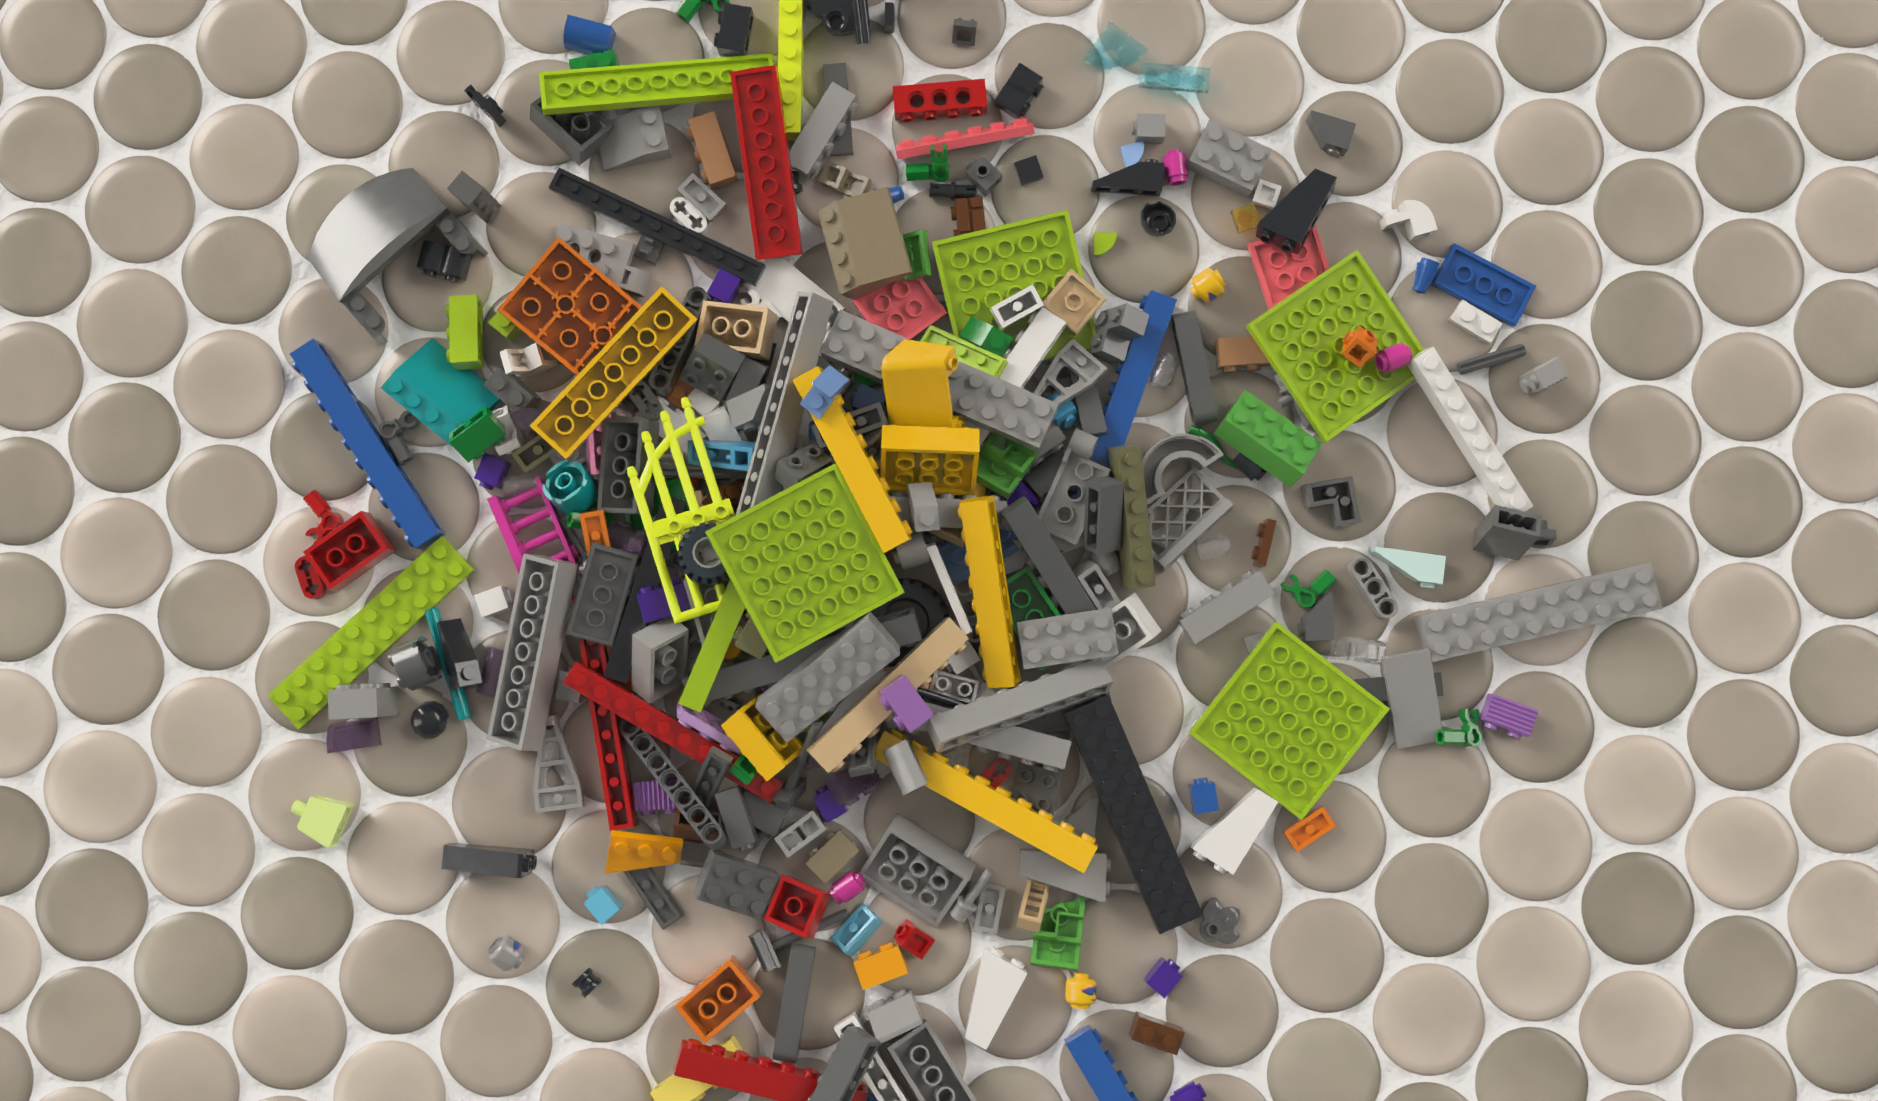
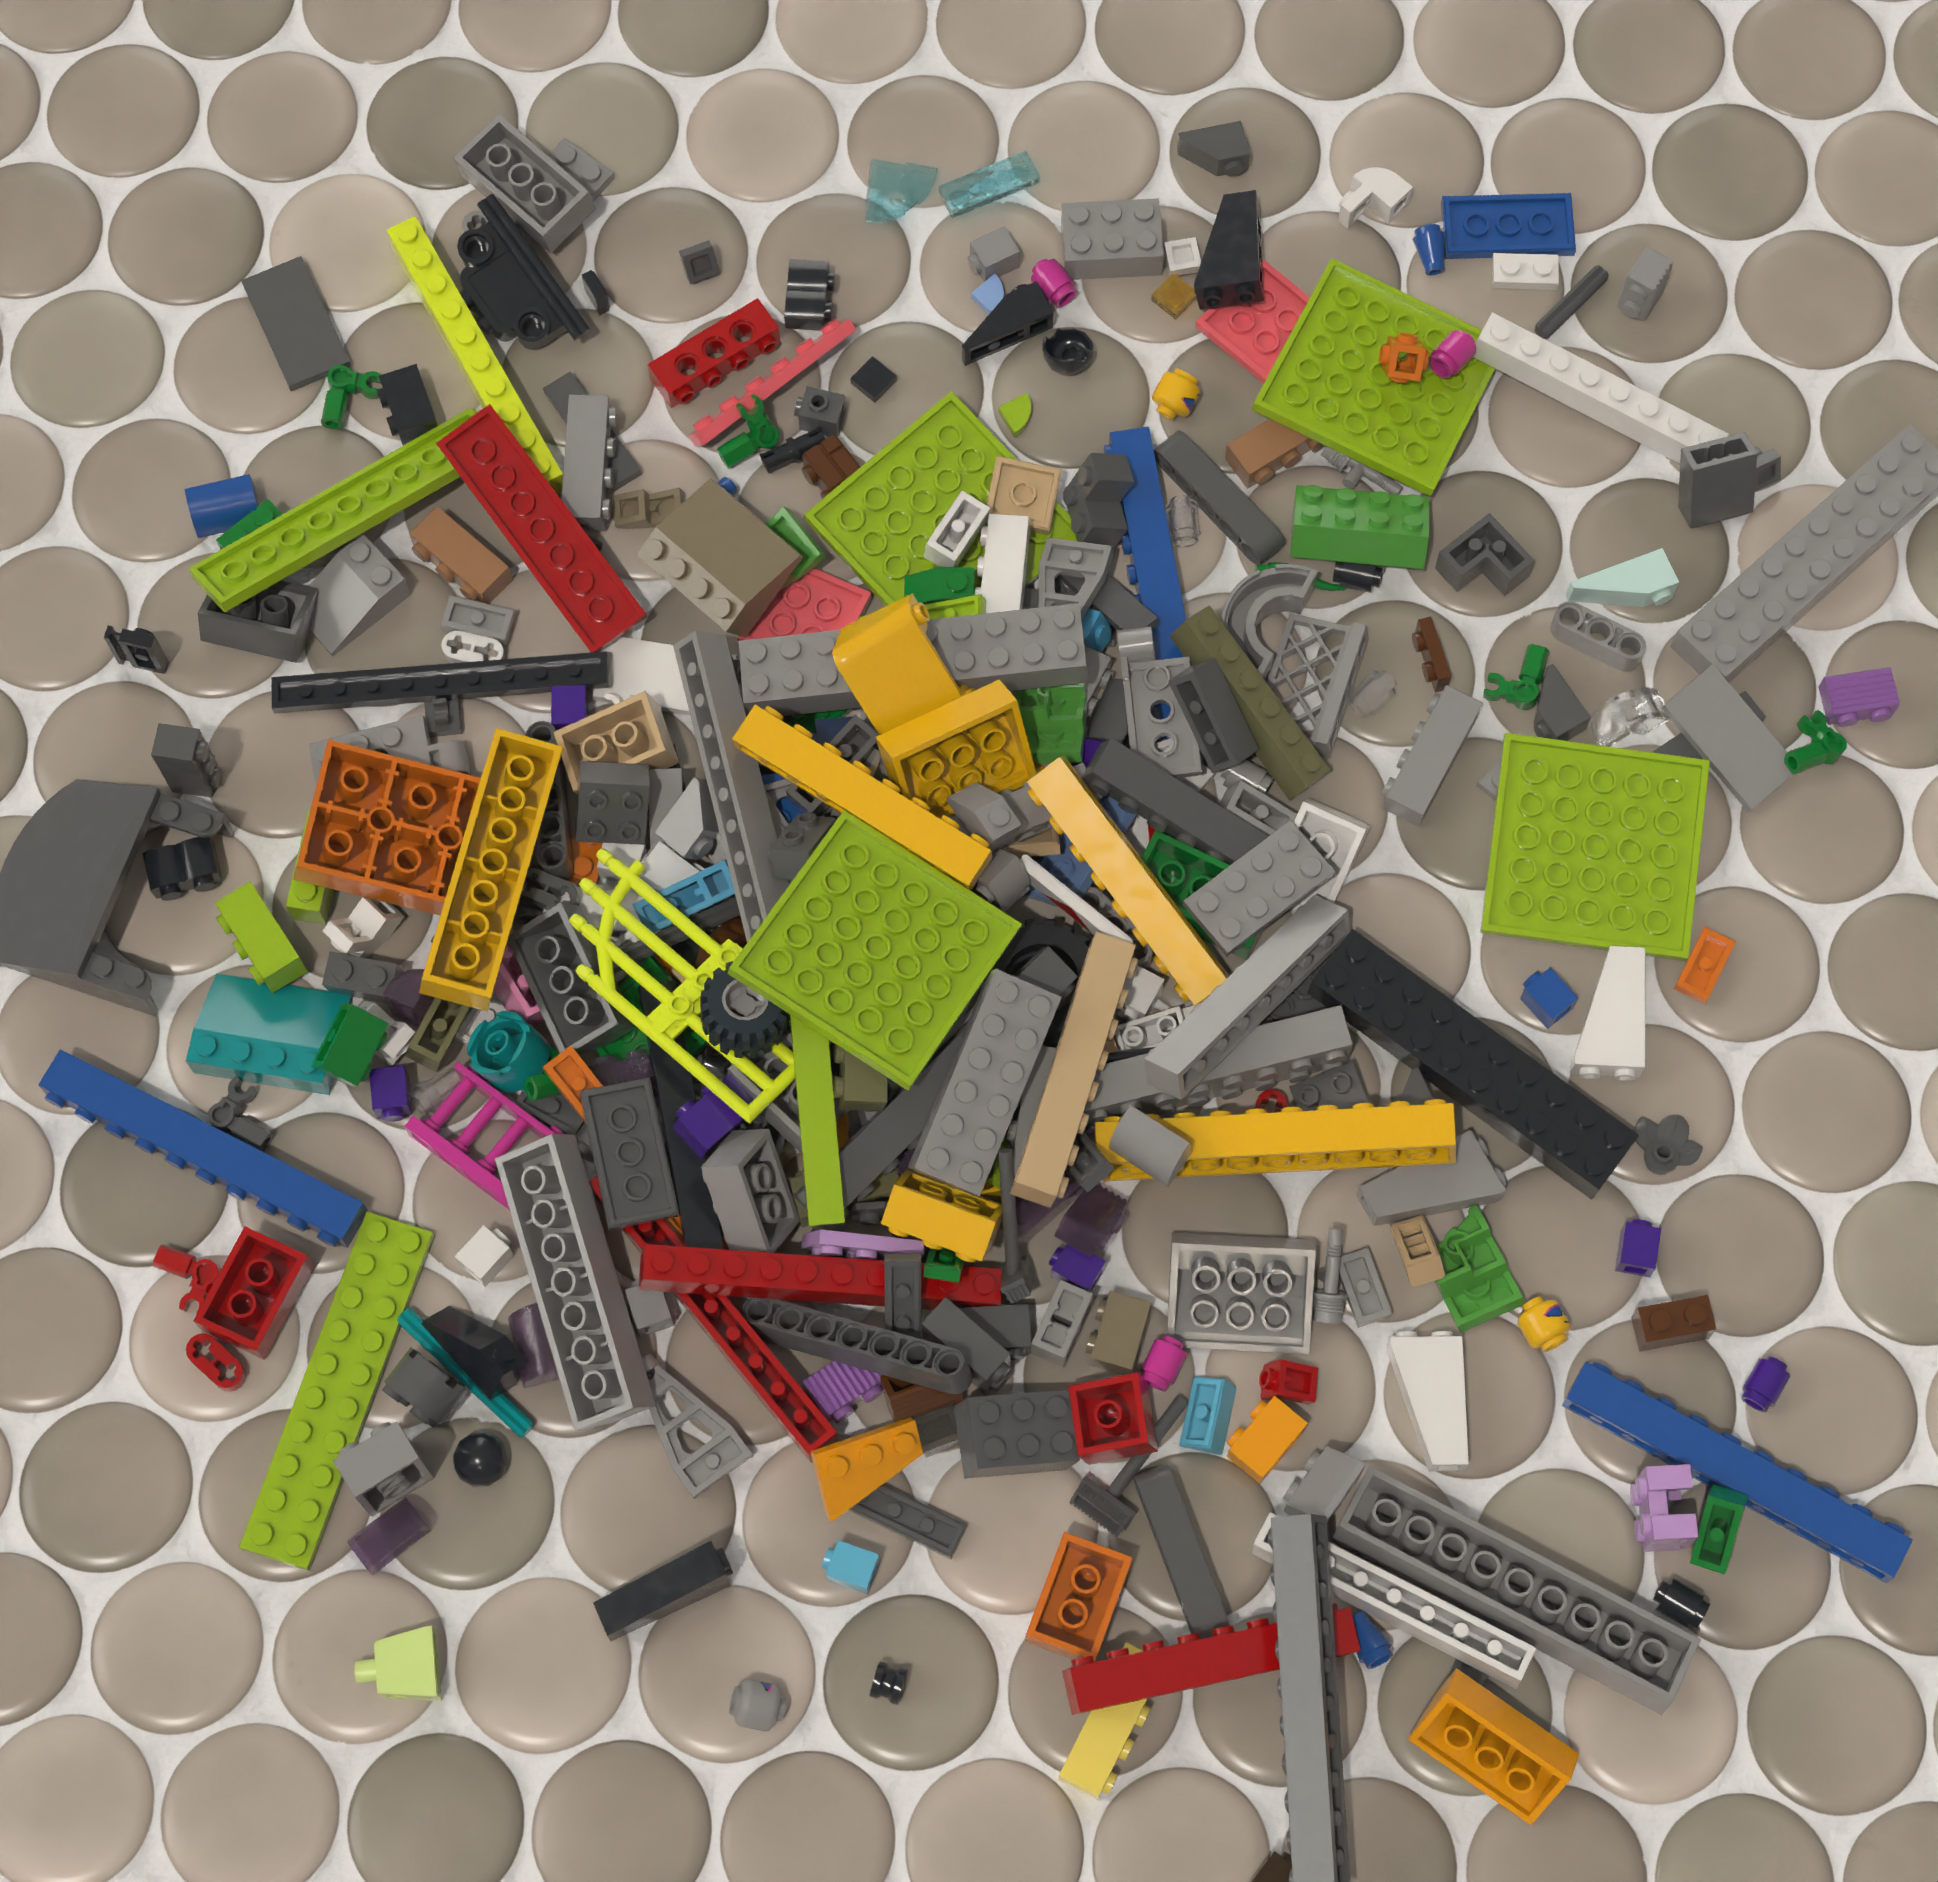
camera: 30 degrees left, 15 degrees down
(824, 391) = (781, 729): medium blue slope -> none
(905, 704) = (1104, 1057): medium lavender brick -> none

